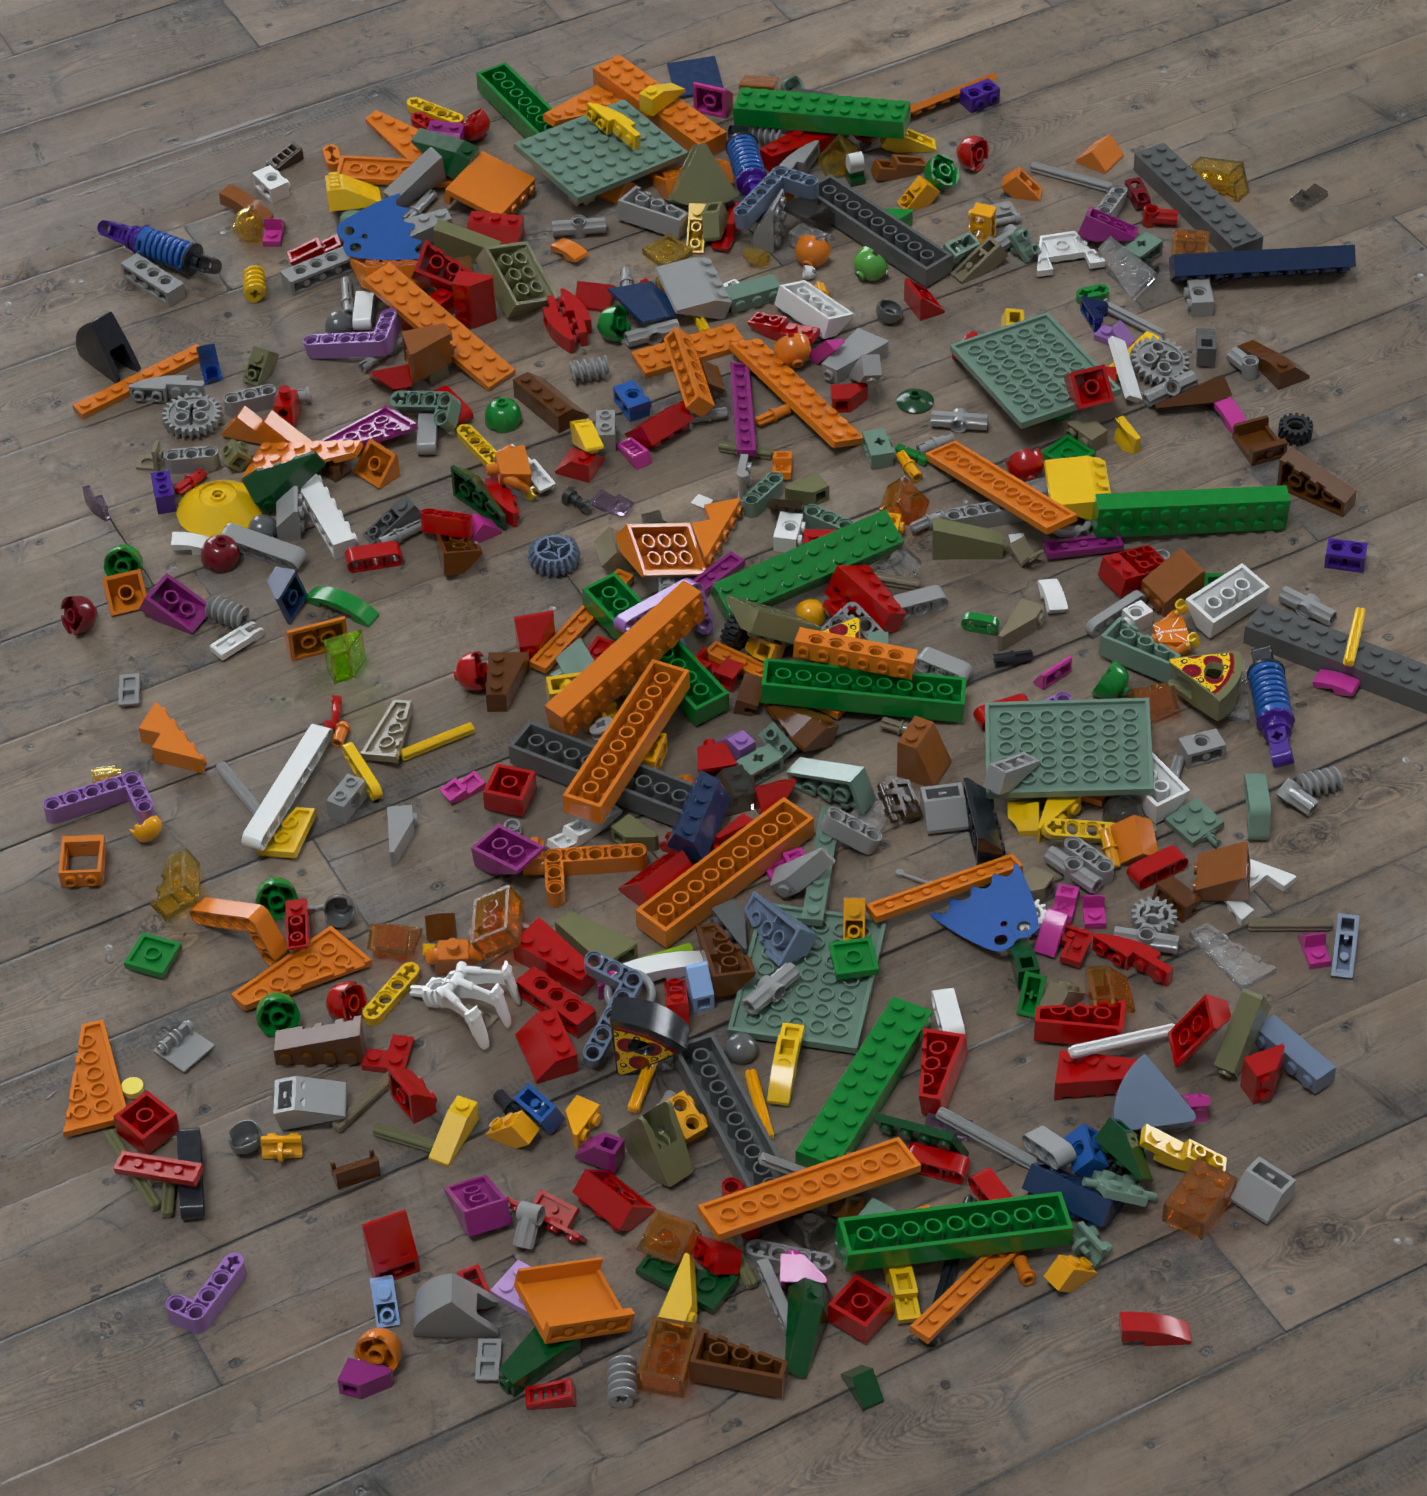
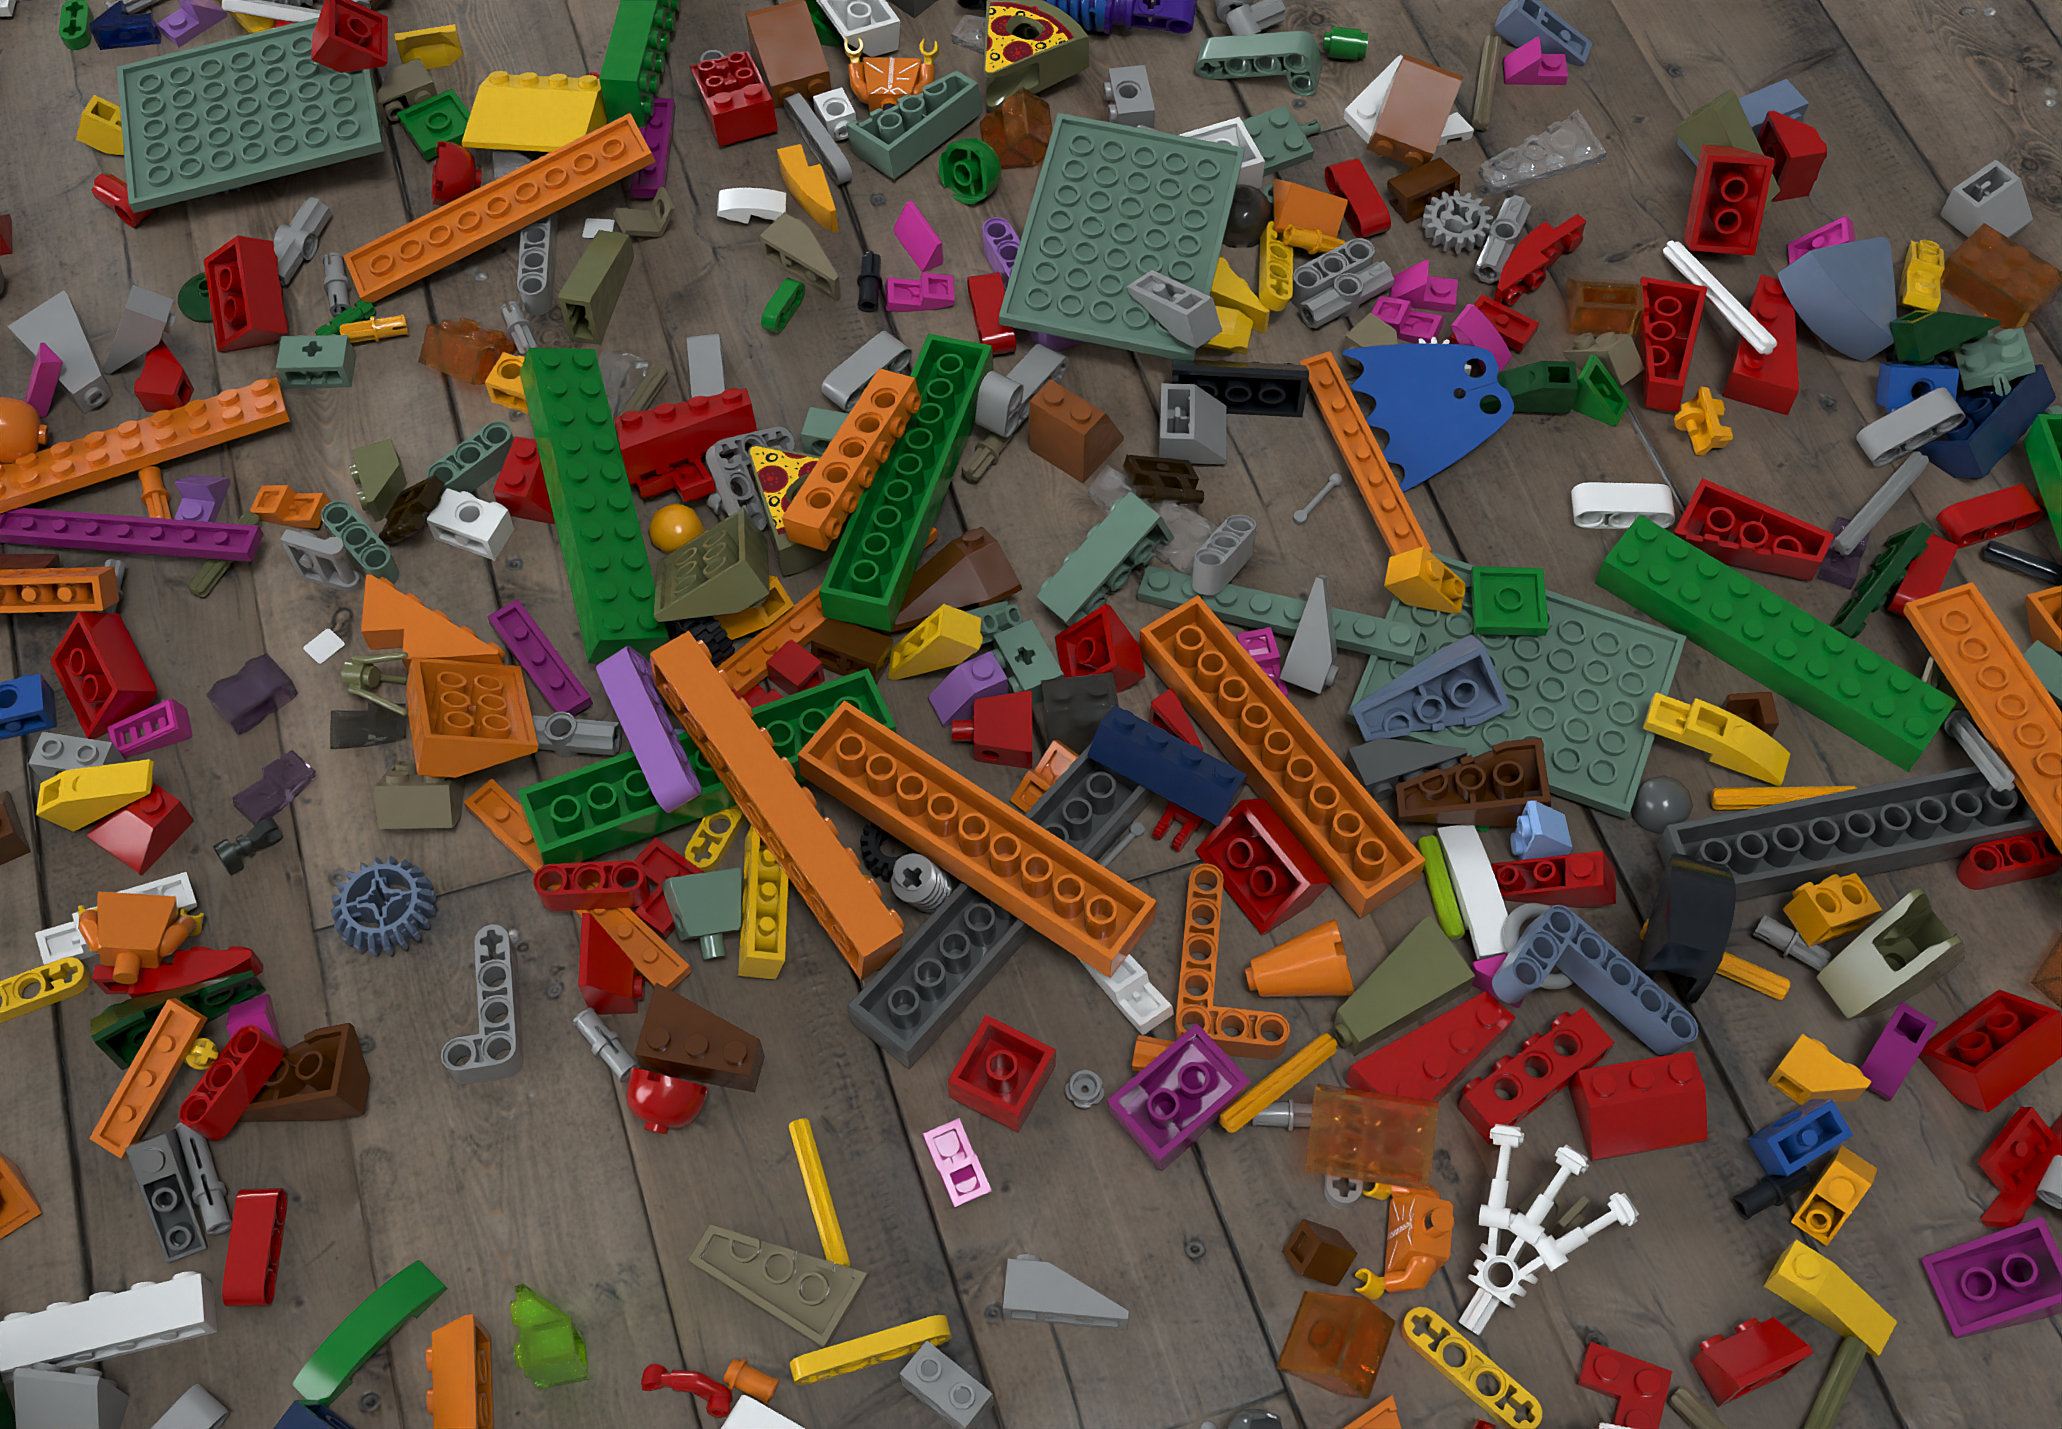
camera: 80 degrees left, 15 degrees up
(444, 495) = (148, 1077): none -> orange plate
(459, 507) = (201, 1054): none -> yellow axle
(502, 646) = (605, 1043): none -> light grey pin
(504, 608) = (491, 1002): none -> light grey beam
(528, 896) = (1278, 1083): none -> light orange axle
(576, 617) = (576, 876): none -> red beam
(599, 901) = (1304, 966): none -> orange cone
(632, 830) = (1155, 875): olive slope -> none
(640, 816) = (1136, 831): none -> light grey hinge
(662, 480) = (252, 693): none -> clear purple brick
(681, 514) = (361, 675): none -> olive plant
(752, 716) = (936, 643): none -> yellow slope
(770, 988) = (1563, 728): light grey piece -> none
(780, 432) = (201, 497): none -> medium lavender slope
(810, 1085) = (1754, 708): none -> reddish brown panel
(909, 408) = (245, 294): none -> red slope
(952, 732) = (1005, 400): none -> light grey beam
(1012, 680) = (928, 293): none -> dark pink slope
(1024, 1046) = (1701, 421): none -> light orange hips
(1075, 616) = (808, 186): none -> light orange slope
(1294, 846) = (1345, 43): none -> green brick

